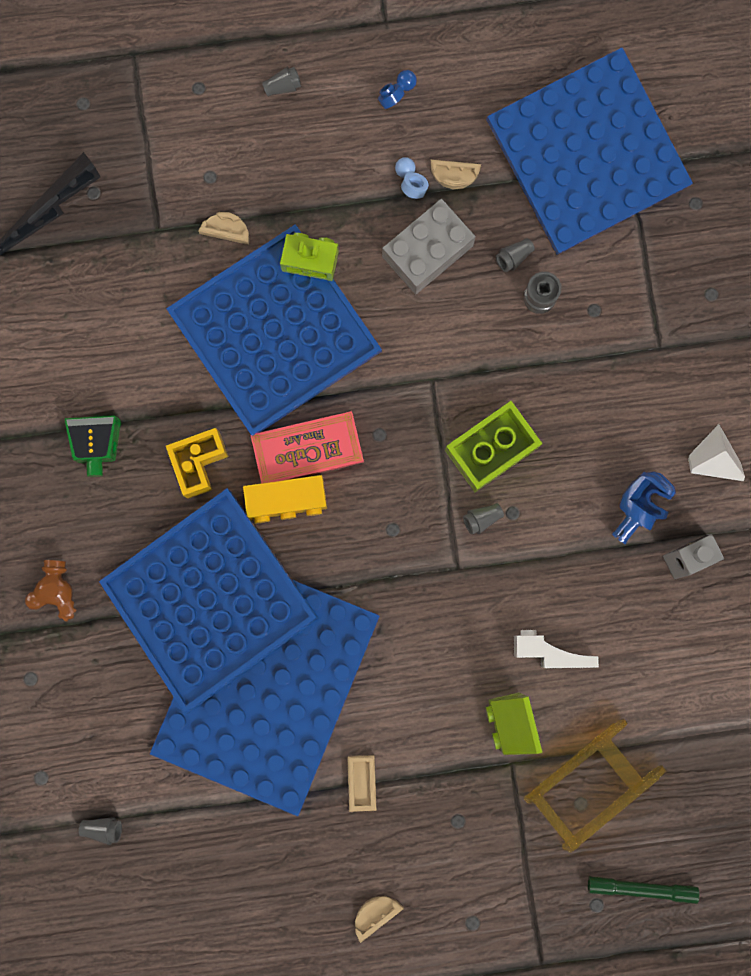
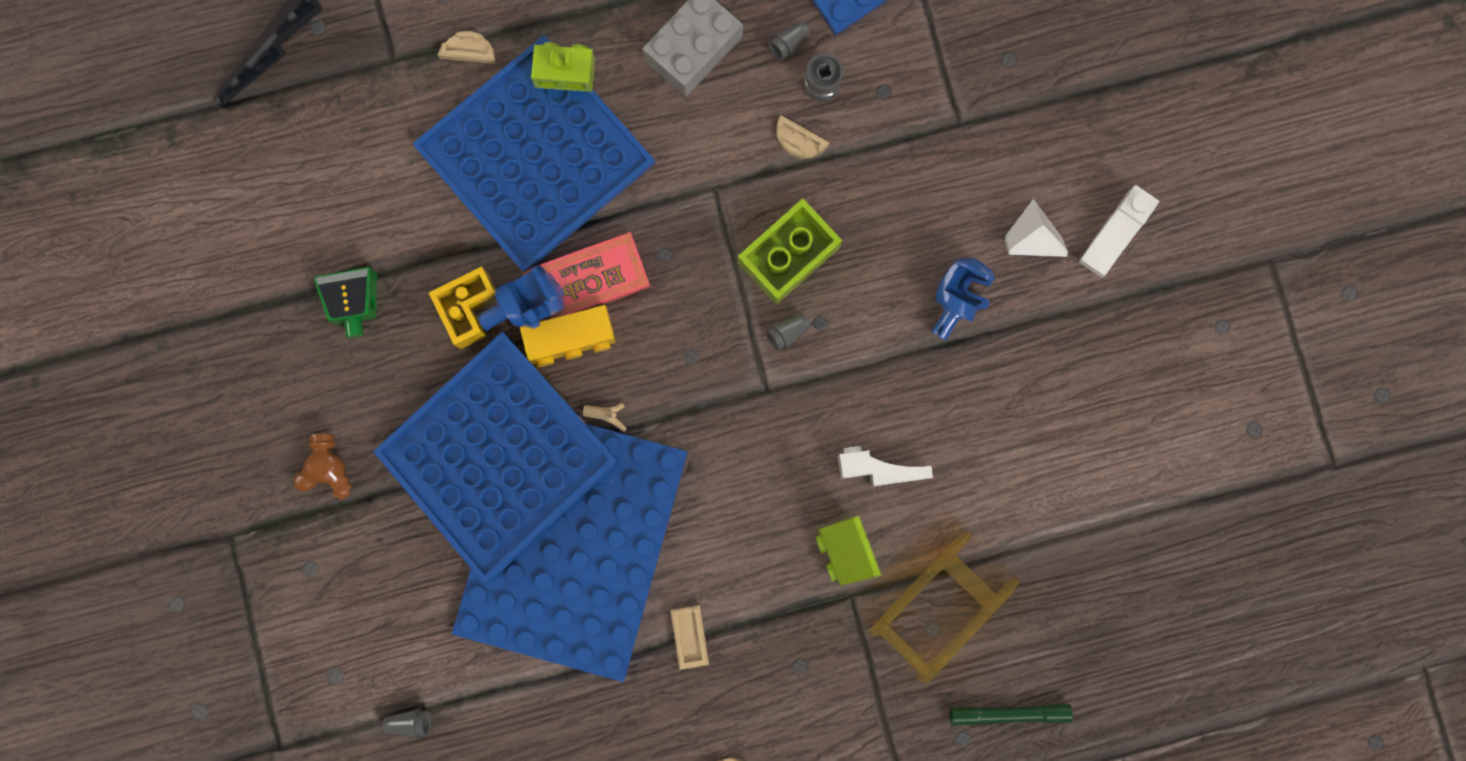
camera: 10 degrees left, 0 degrees up
(251, 463) = (525, 300): none -> blue piece
(310, 572) = (606, 414): none -> tan bar
(512, 346) = (798, 140): none -> tan tile
(694, 556) = (1022, 345): light grey torso -> none

